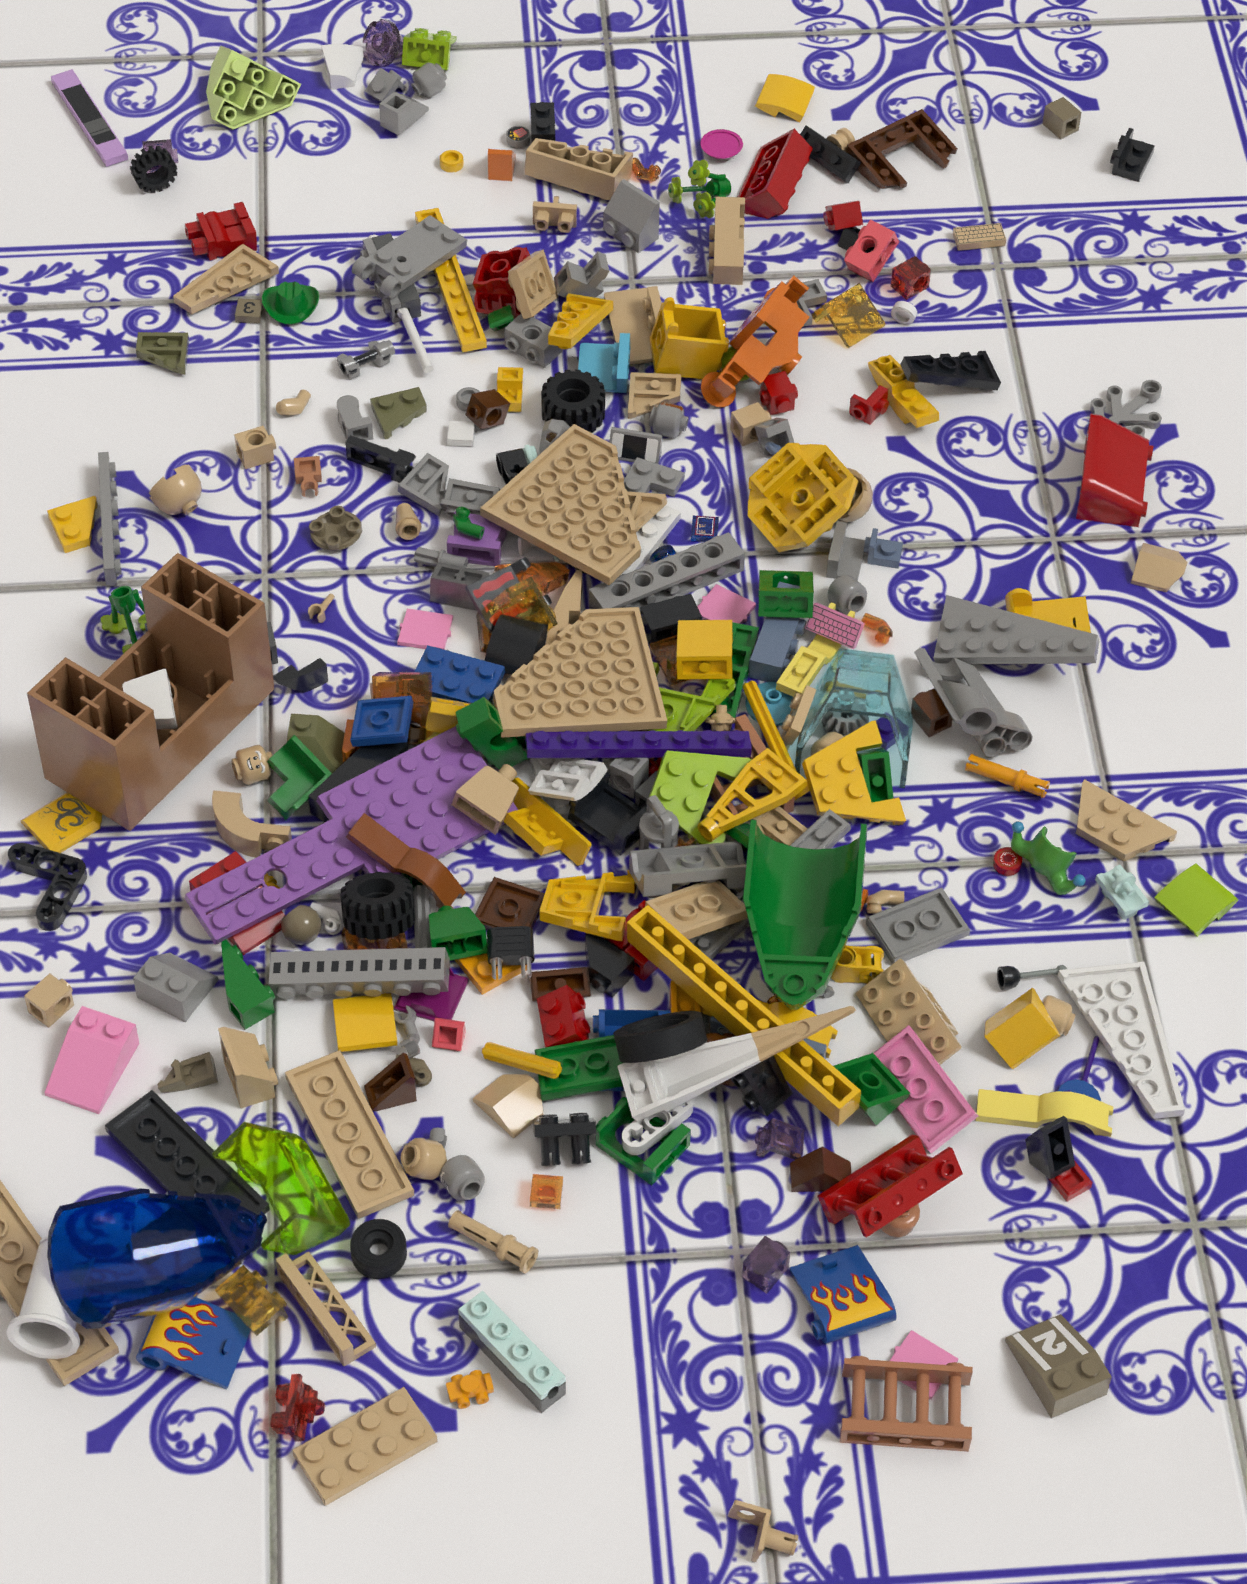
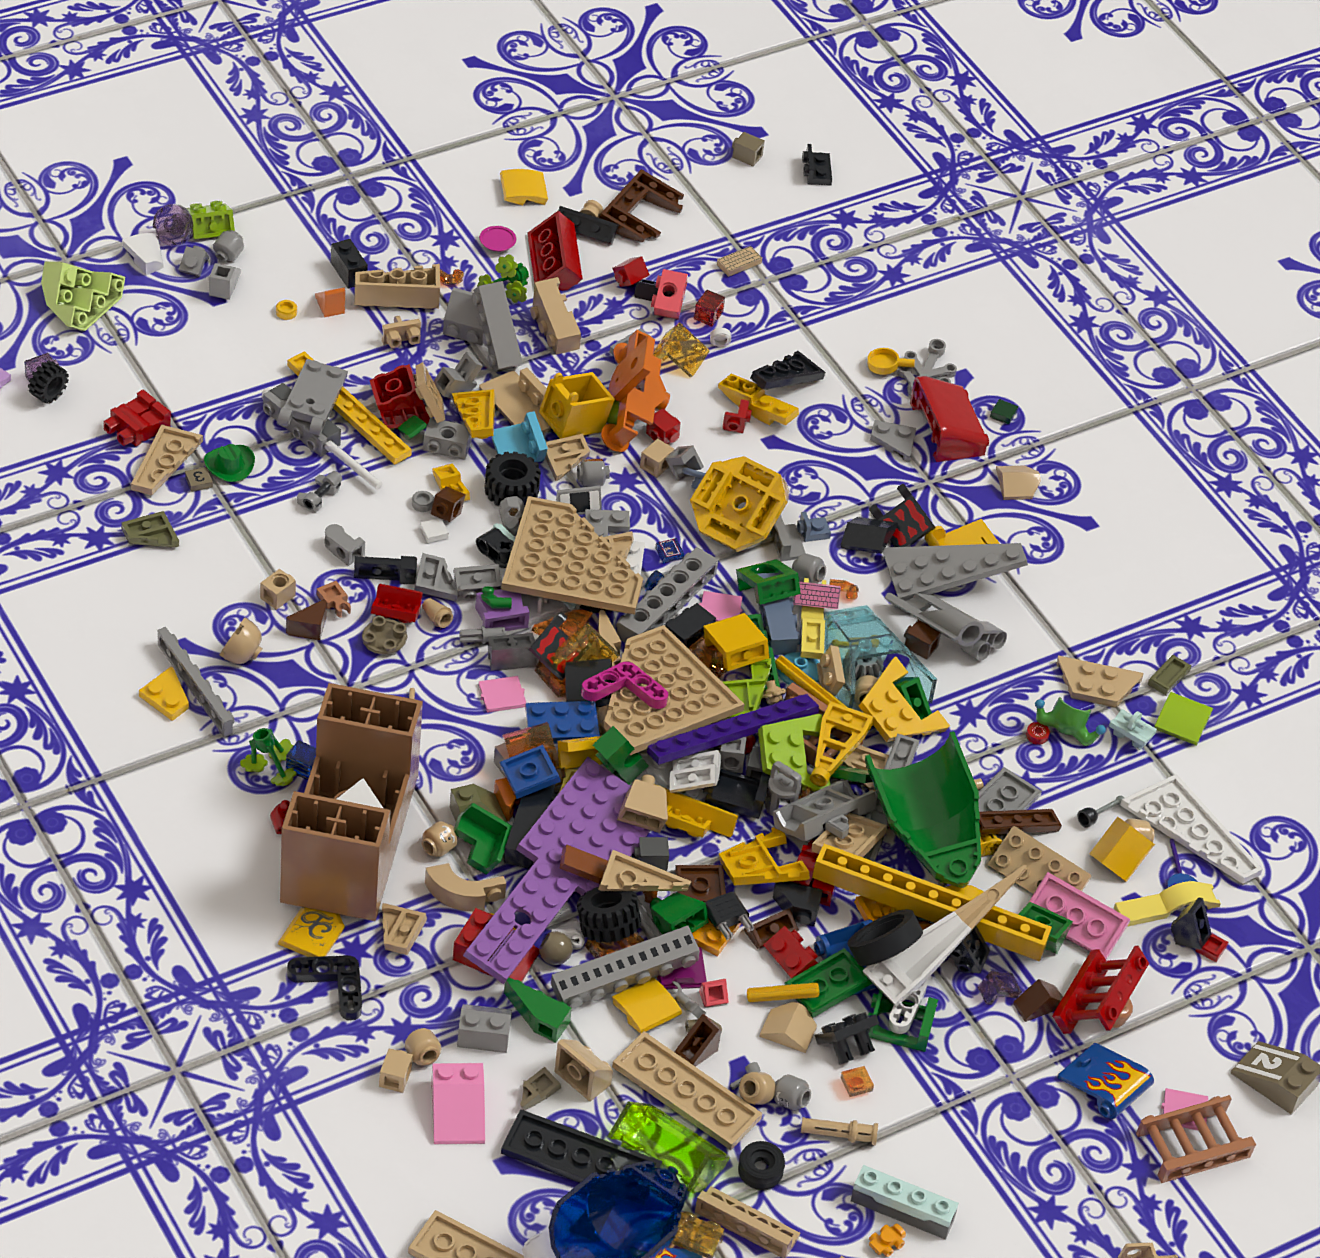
camera: 30 degrees left, 5 degrees down
(93, 984) = (423, 1046): none -> tan head
(154, 848) = (401, 927): none -> tan wing
(265, 490) = (308, 621): none -> reddish brown slope
(293, 406) = (286, 546): tan arm -> none
(304, 679) = (438, 760): black slope -> none
(368, 499) = (397, 603): none -> red bracket
(398, 409) = (371, 525): olive wing -> none
(419, 870) = (630, 874): none -> tan wing
(474, 855) = (653, 851): none -> dark grey brick
(502, 653) = (625, 675): none -> dark pink beam
(518, 136) = (328, 275): tile -> none
(649, 233) = (497, 326): none -> light grey brick
(690, 892) = (838, 826): none -> light grey tile
(766, 1264) = (1043, 1077): clear purple brick -> none
(916, 954) = (1026, 820): none -> reddish brown tile
(940, 575) = (868, 534): none -> black slope
(990, 574) = (911, 519): none -> flag
(1018, 779) = (1002, 670): light orange pin -> none
(1041, 477) = (894, 437): none -> light grey wing
(1080, 389) = (887, 361): none -> yellow piece
(1189, 484) = (1004, 411): none -> dark green tile
(1210, 843) = (1169, 675): none -> olive tile

